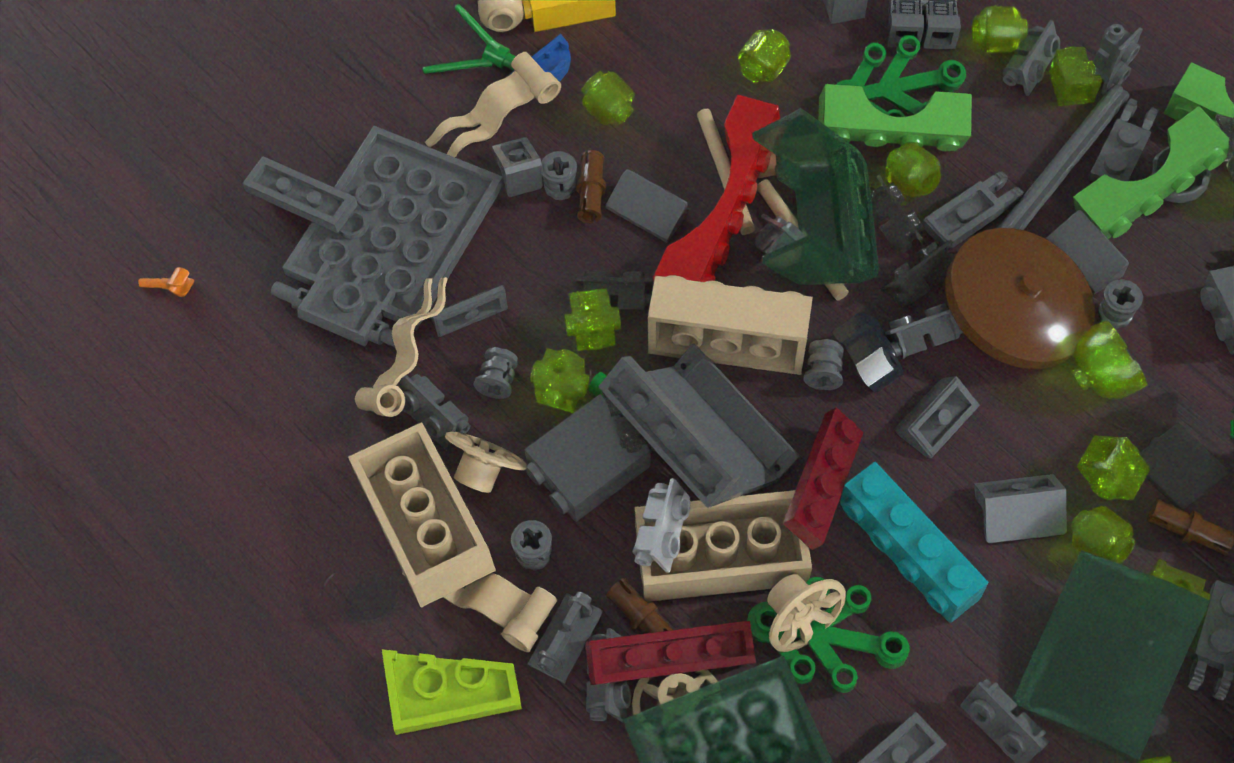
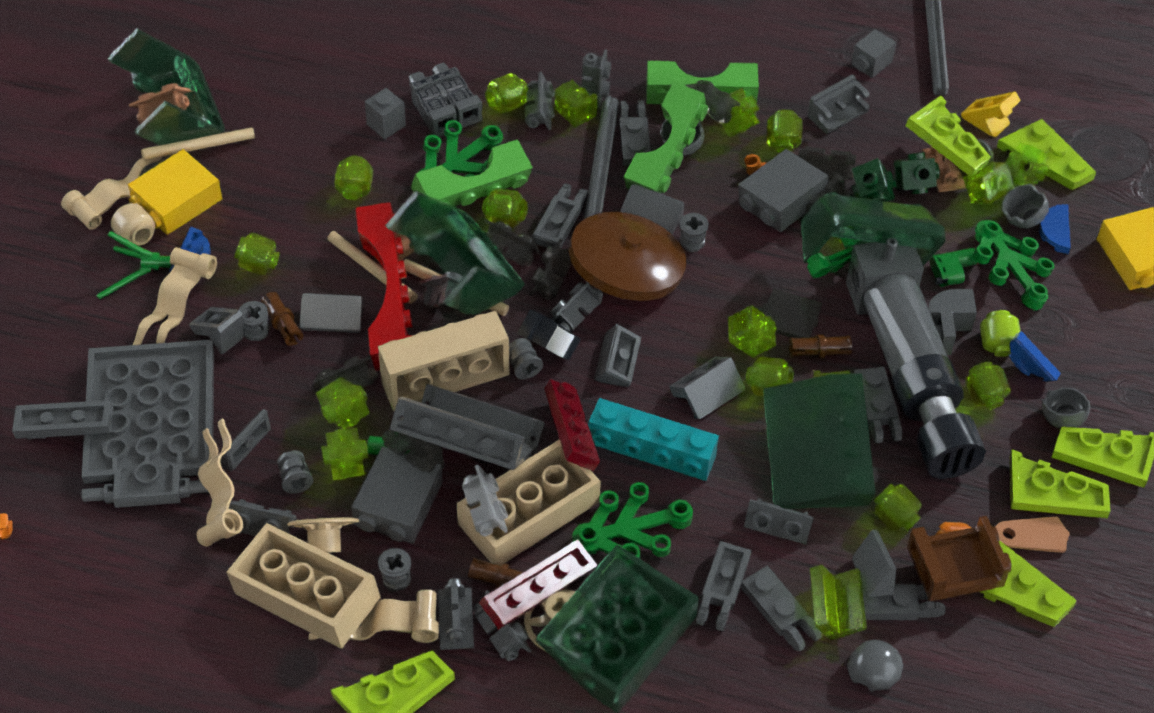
camera: 35 degrees left, 10 degrees down
(798, 606) = (606, 510): tan wheel -> none
(1106, 364) = (708, 271): clear neon green cylinder -> none

